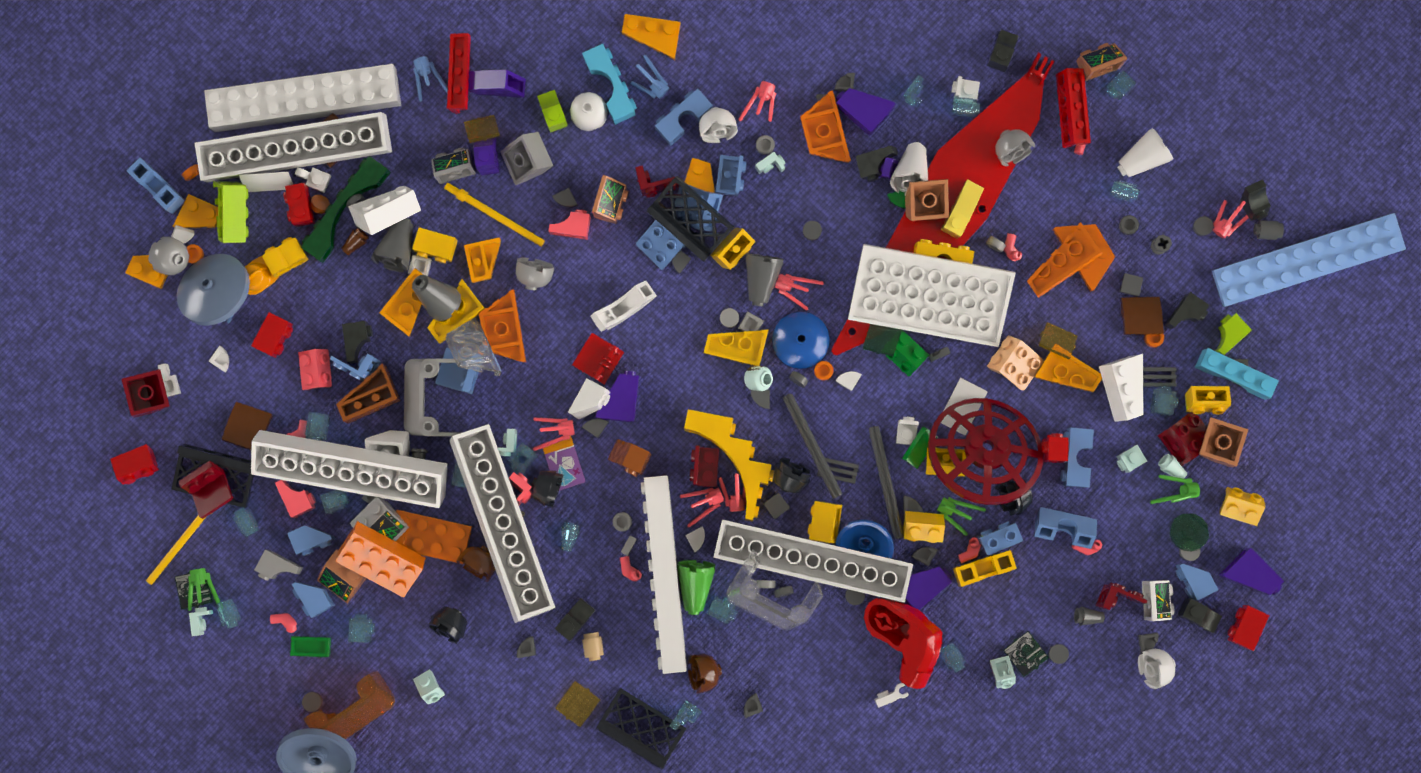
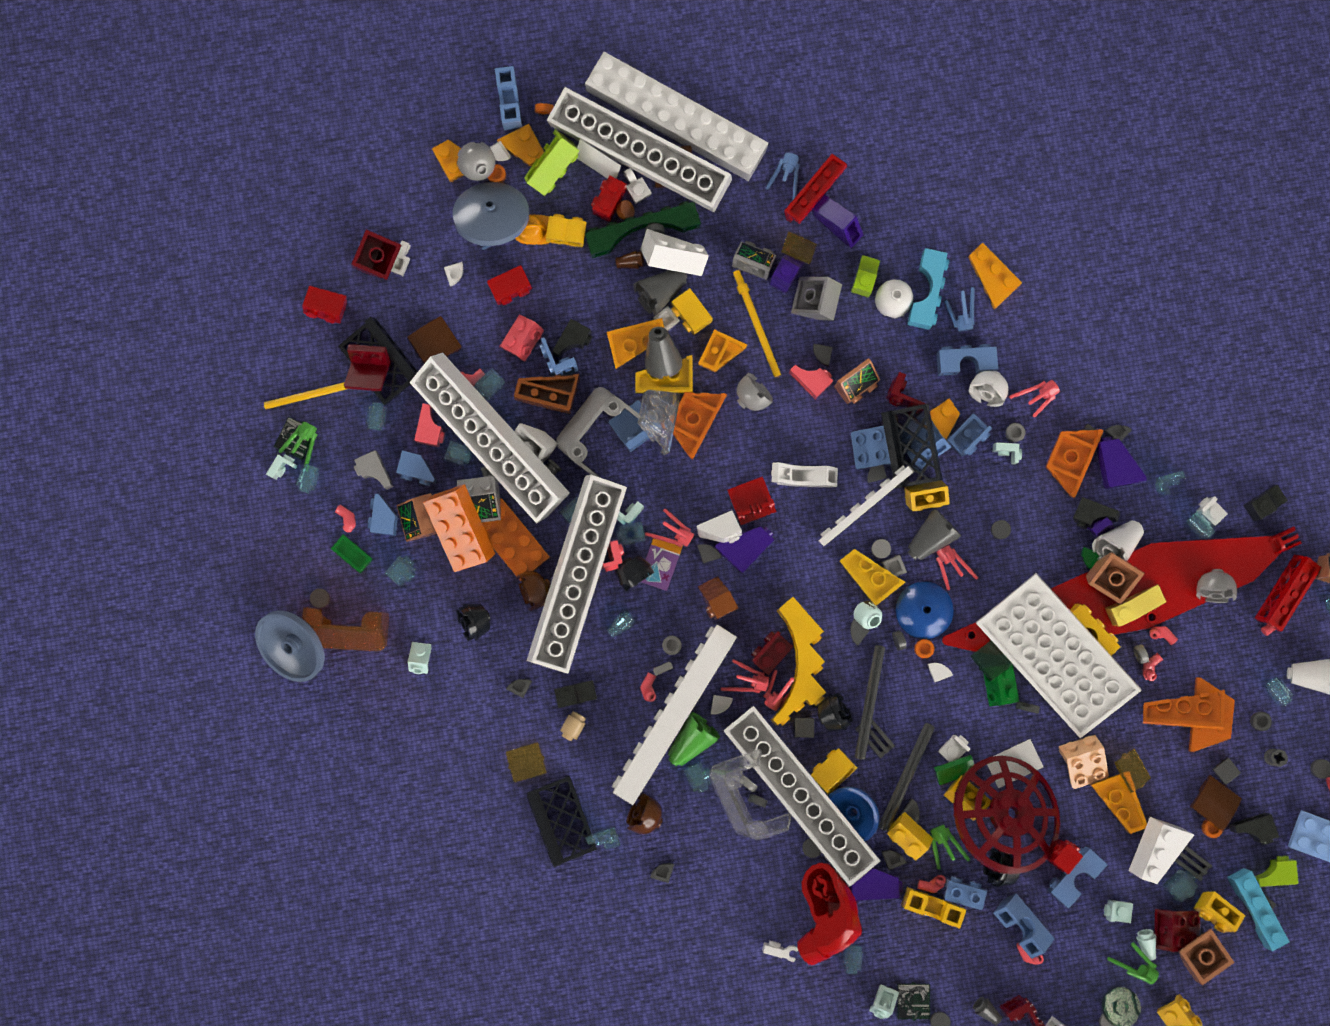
camera: 30 degrees right, 0 degrees up
(691, 285) = (858, 510): none -> white plate
(999, 214) = (1163, 632): none -> coral arm

